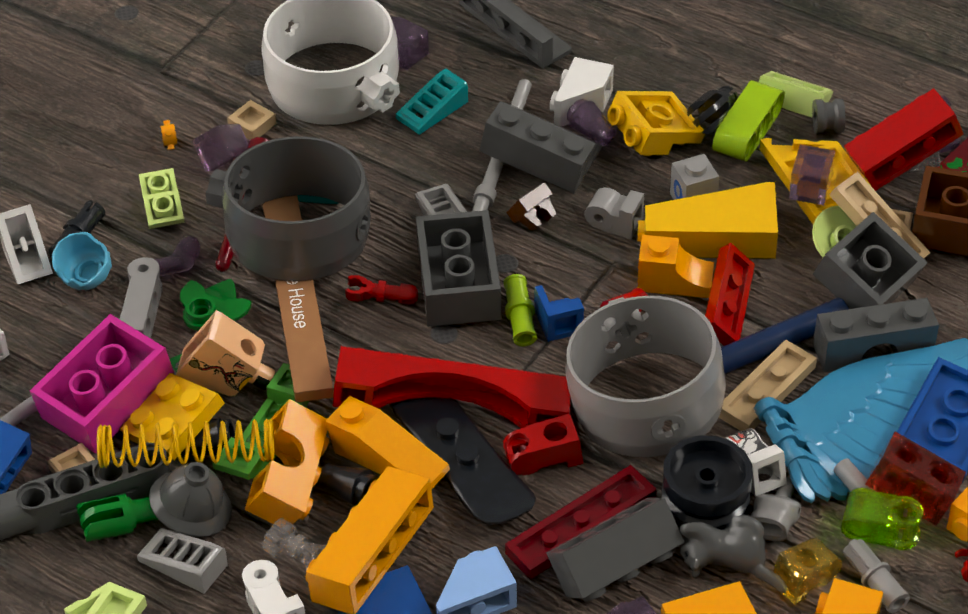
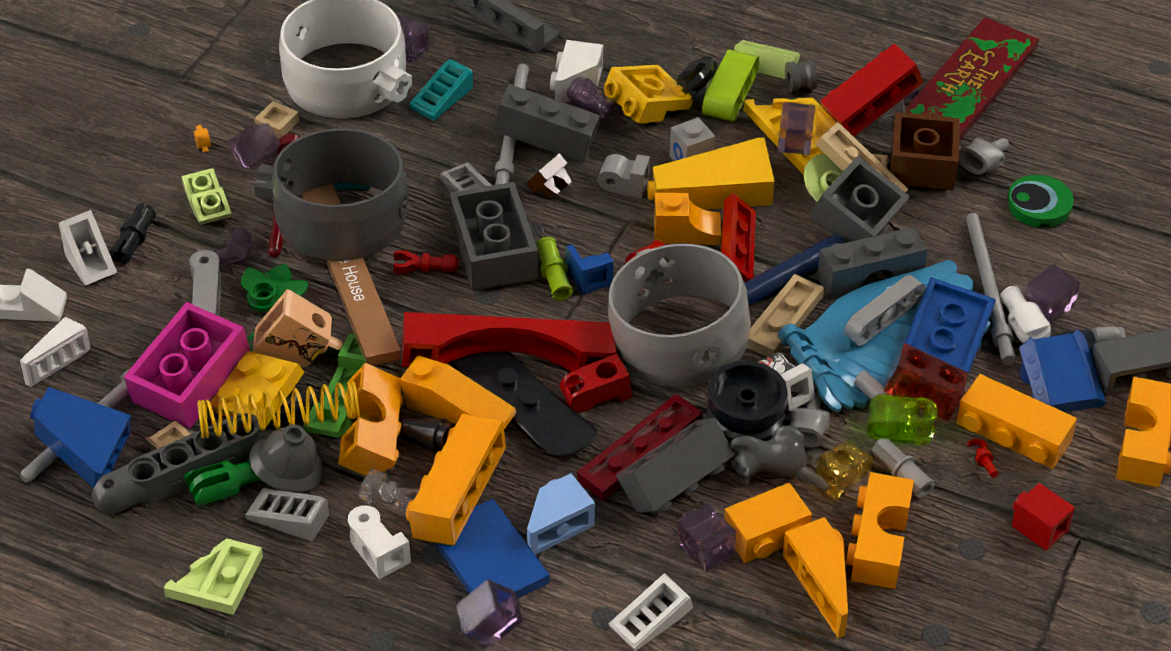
camera: 10 degrees left, 0 degrees up
(81, 261) = (144, 258): medium azure hair -> none
(879, 390) = (884, 310): none -> light grey beam

